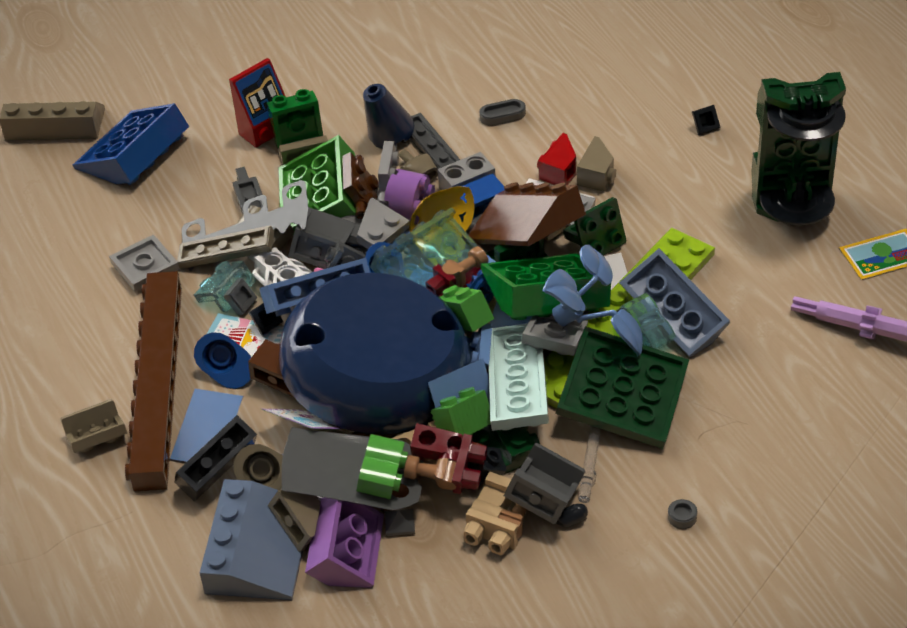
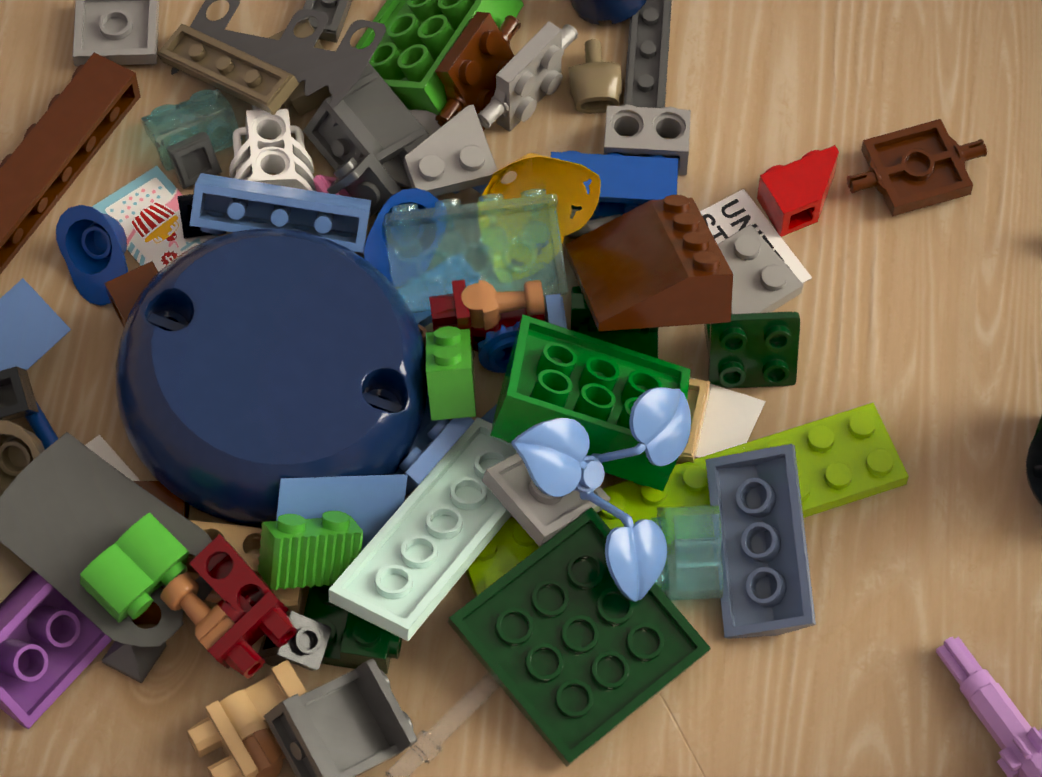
camera: 30 degrees right, 15 degrees up
(303, 418) = (101, 418): sticker -> none
(406, 191) = (530, 123): medium lavender brick -> none
(502, 112) = (793, 49): dark grey tile -> none
(596, 167) = (845, 230): dark tan slope -> none
(608, 124) = (917, 167): none -> reddish brown plate

